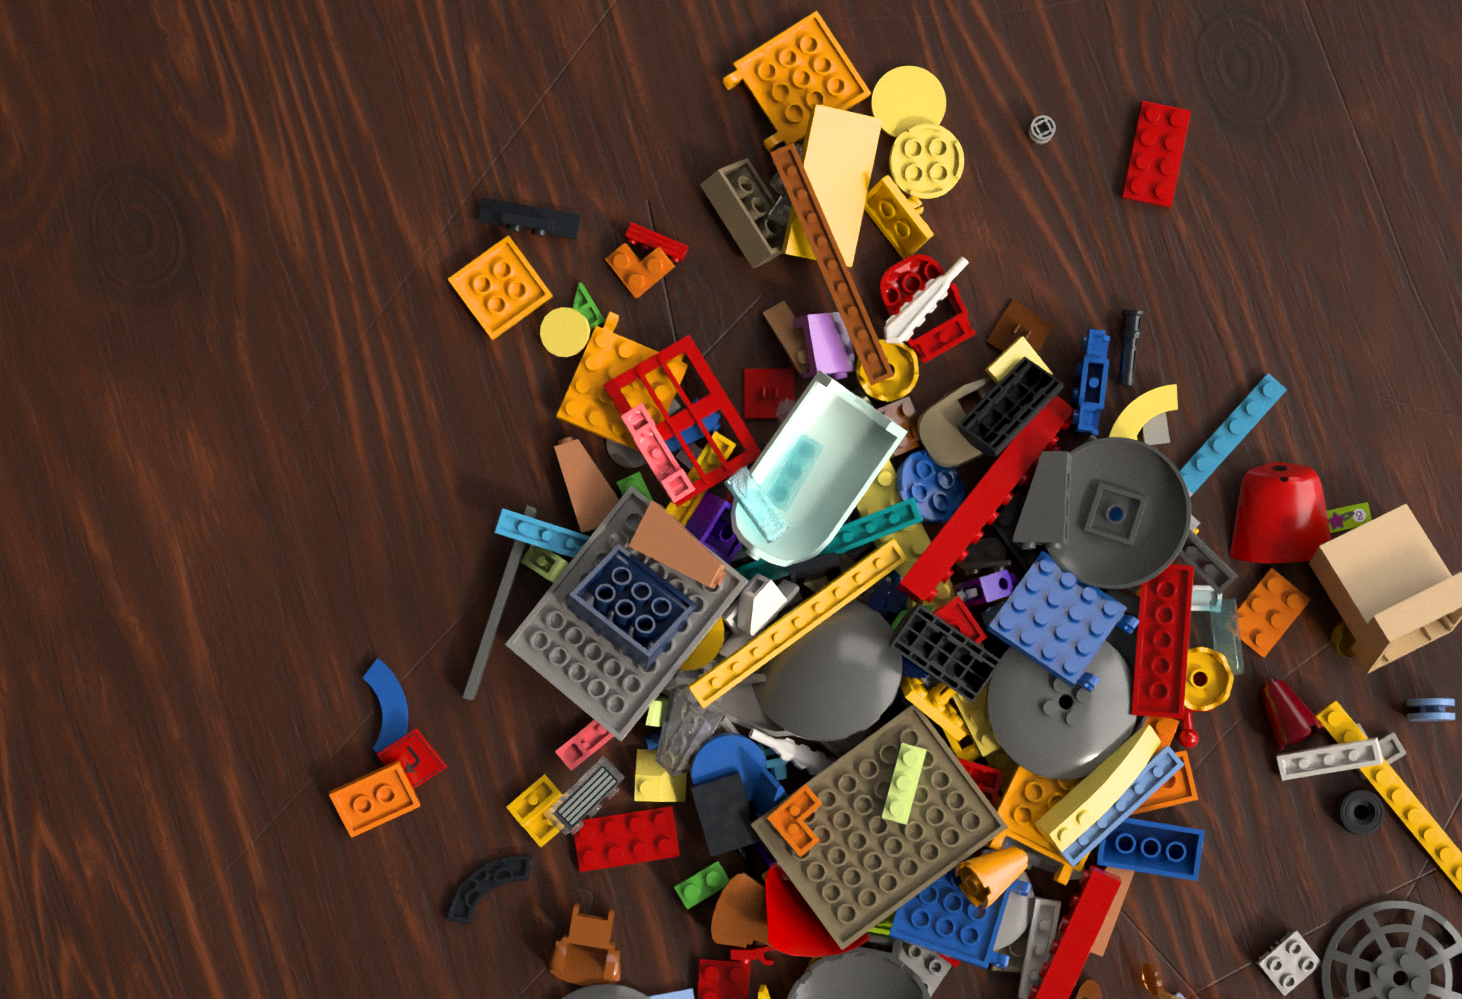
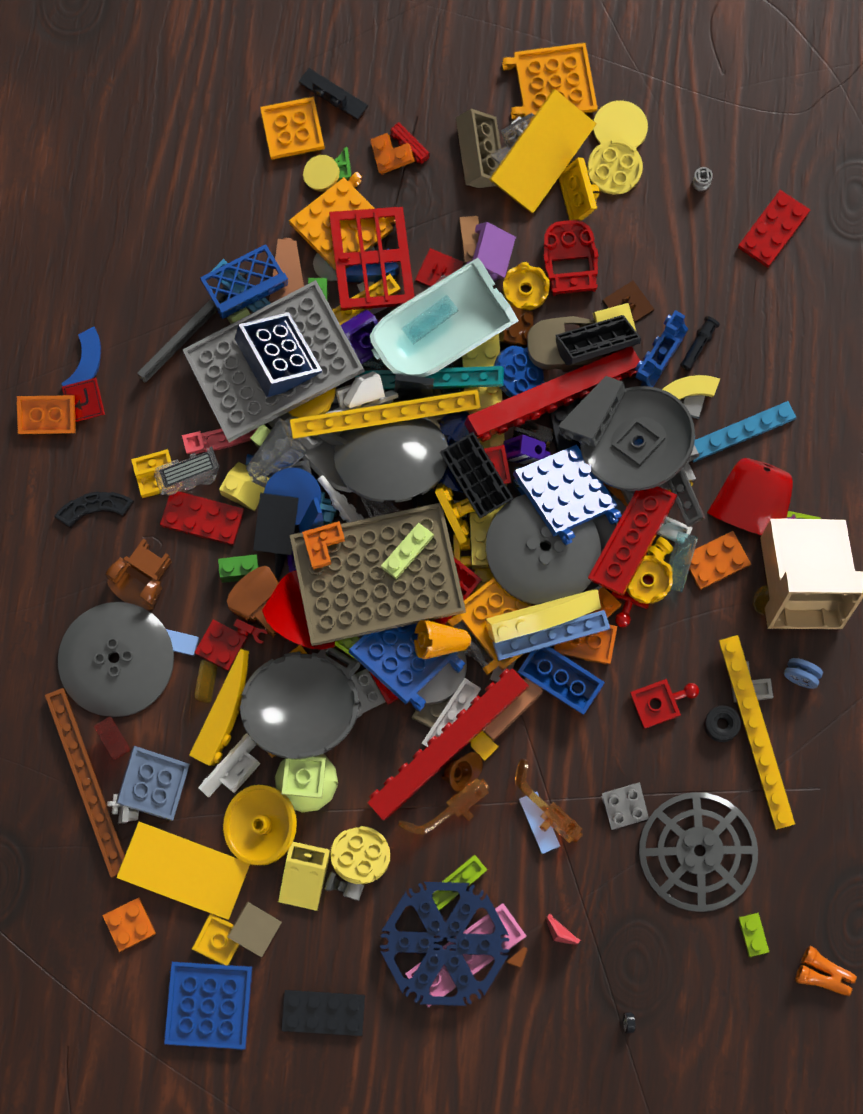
camera: 30 degrees right, 10 degrees down
(559, 538) = (255, 292): none -> blue fence
(656, 453) = (343, 265): coral slope -> none
(674, 546) = (323, 324): nougat slope -> none
(756, 504) = (394, 327): clear light blue plate -> none
(832, 264) = (518, 197): dark orange plate -> none
(912, 314) = (559, 256): white sword -> none
(1095, 967) = (483, 745): none -> yellow tile
(1201, 627) = (661, 548): none -> yellow wheel
(1288, 714) = (700, 634): dark red cone -> none
(1289, 822) = (662, 692): none -> red plate
(1329, 758) = (716, 673): white plate -> none

